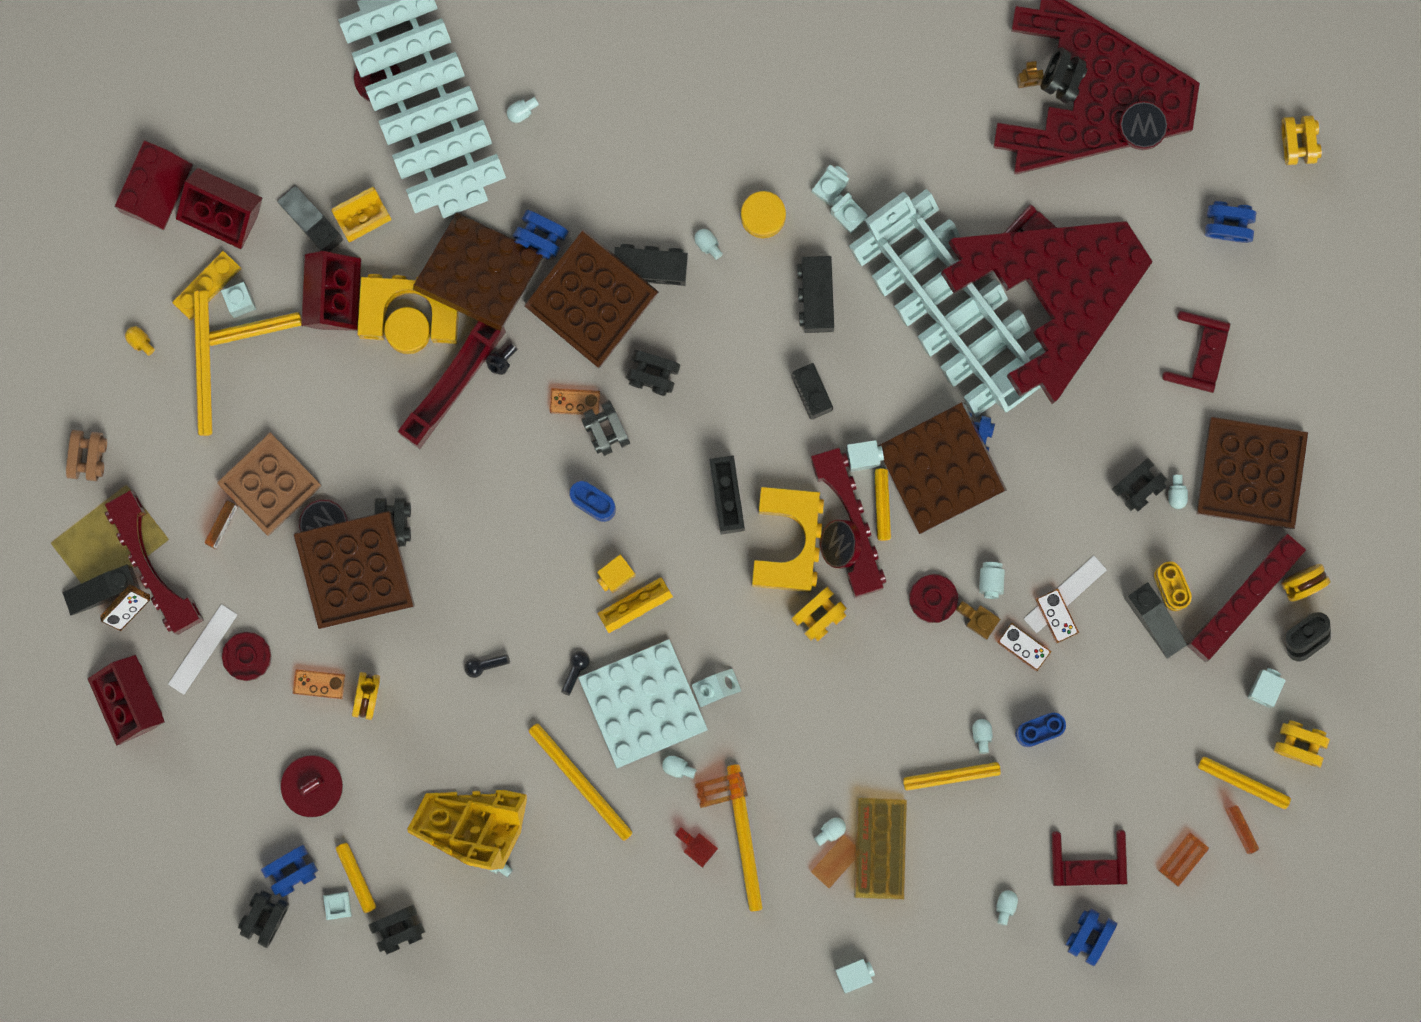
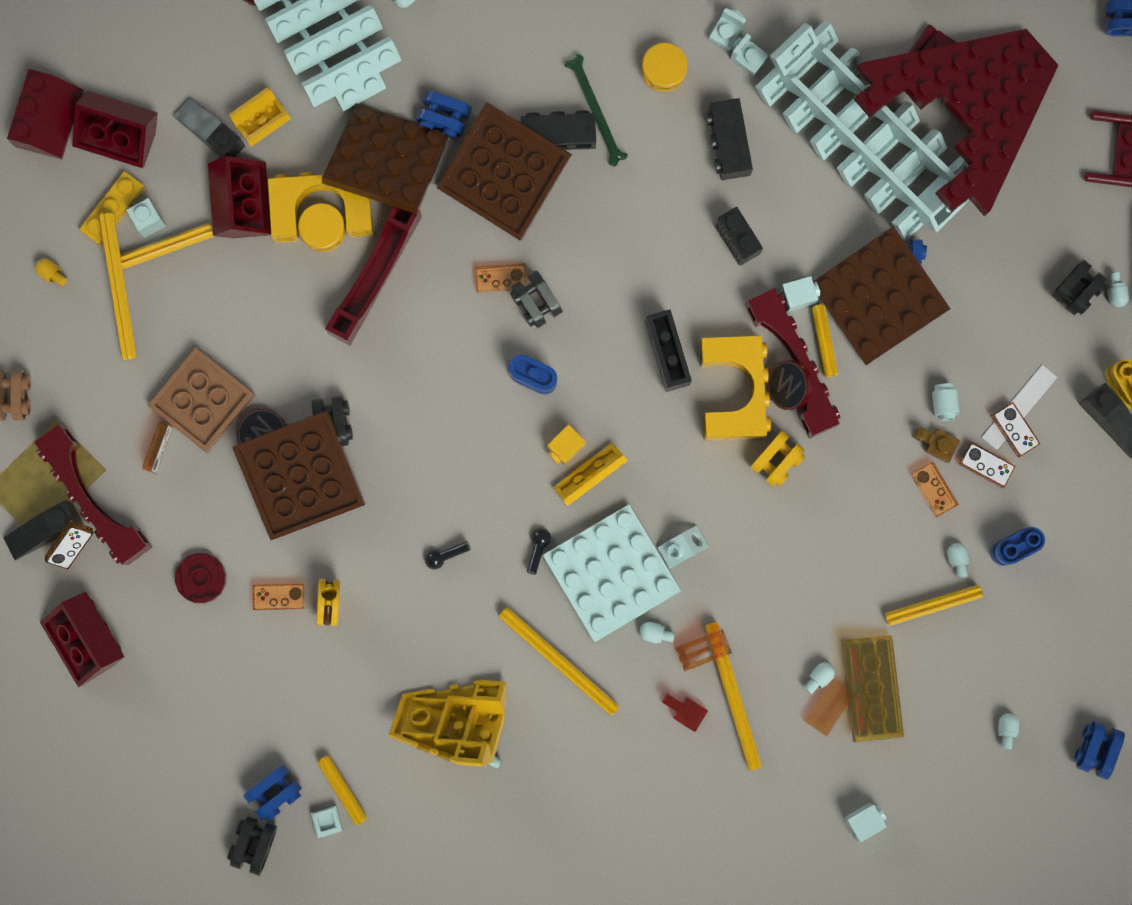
camera: 15 degrees left, 0 degrees up
(202, 649) = (154, 577): white sticker -> none
(311, 786) = (284, 702): dark red shield -> none
(411, 933) = (406, 841): pearl dark grey brick -> none
(498, 363) = (417, 248): black plate -> none
(660, 384) = (583, 248): pearl dark grey brick -> none
(678, 202) = (615, 154): none -> clear green piece
(708, 243) = (612, 102): light aqua cylinder -> none
(933, 598) = (889, 428): dark red tile -> none
(969, 663) = (934, 489): none -> clear orange tile
(1089, 871) = (1085, 683): dark red plate -> none

